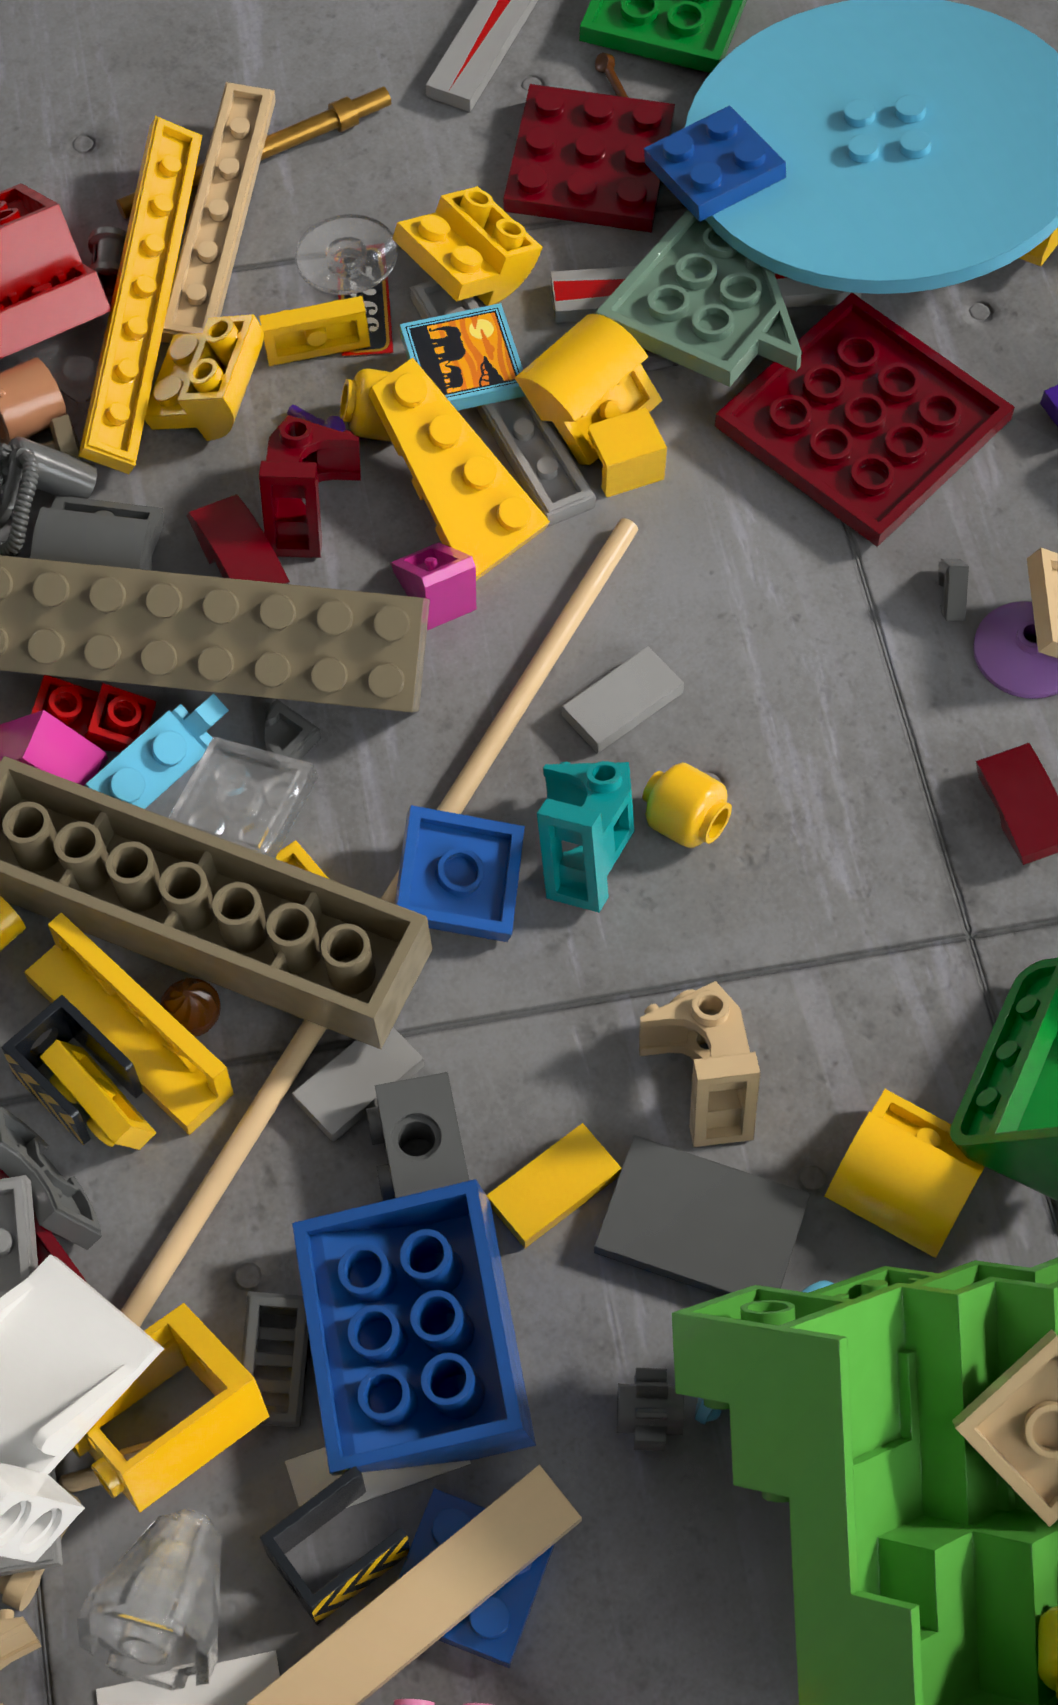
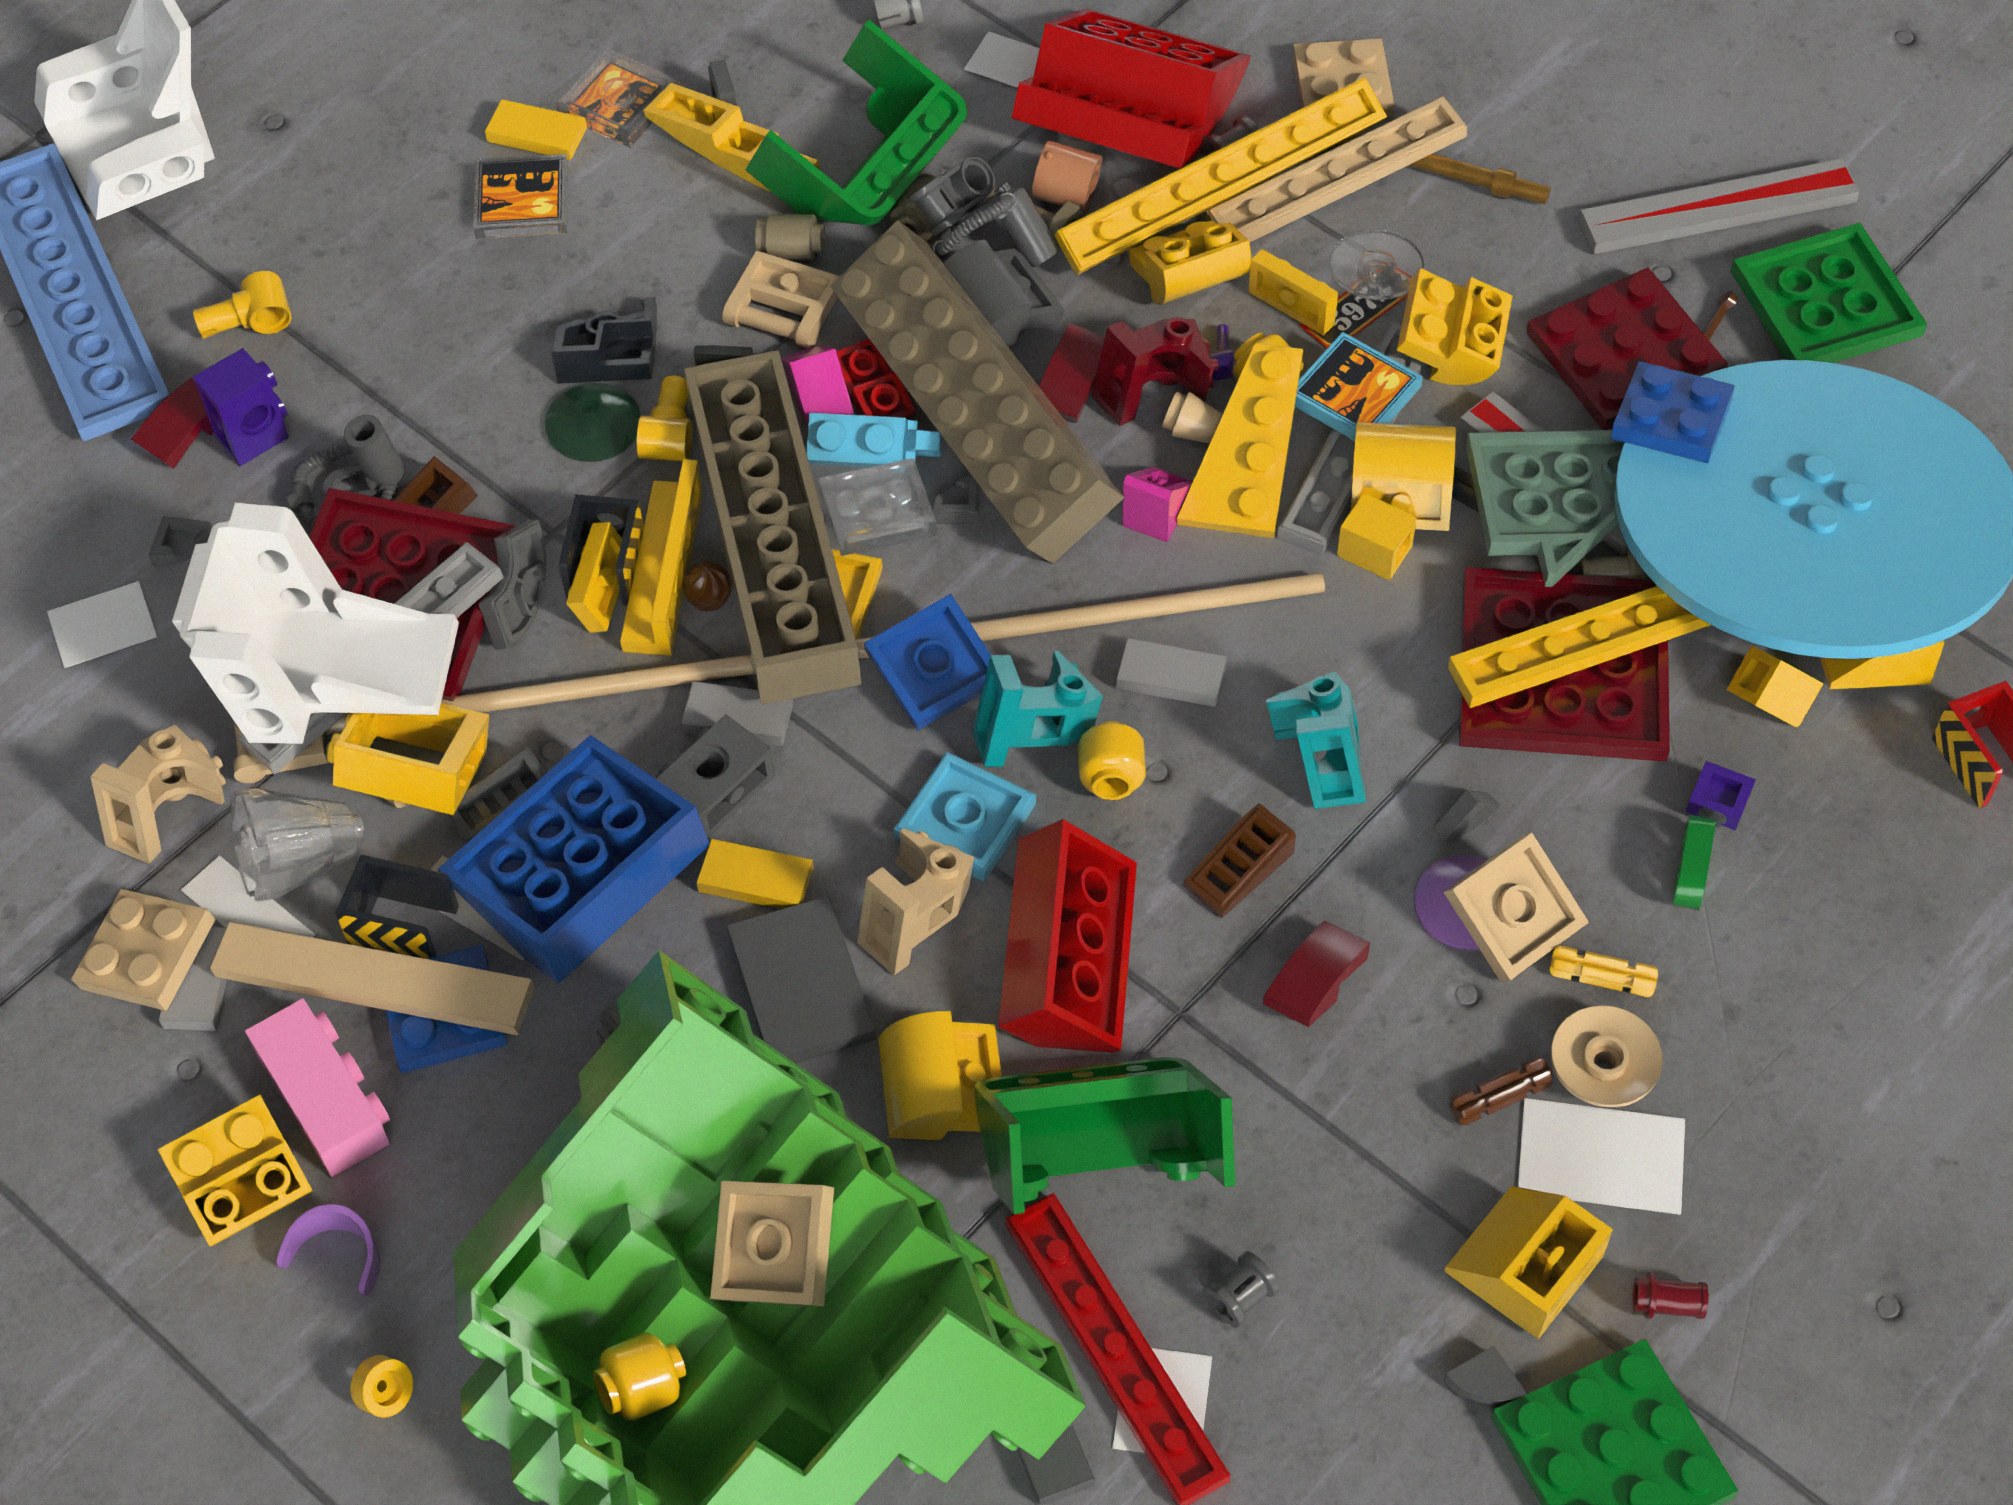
camera: 55 degrees right, 5 degrees down
(106, 140) = (1332, 65): none -> tan plate
(377, 496) = (1191, 418): none -> tan cone
(631, 962) = (969, 811): none -> medium azure tile
(809, 310) = (1613, 566): none -> dark tan pin
(830, 620) = (1323, 720): none -> teal tile
(841, 972) = (1068, 941): none -> red slope
(855, 746) = (1264, 837): none -> reddish brown slope
(868, 397) = (1570, 645): none -> yellow plate
(1007, 298) = (1774, 686): none -> yellow panel

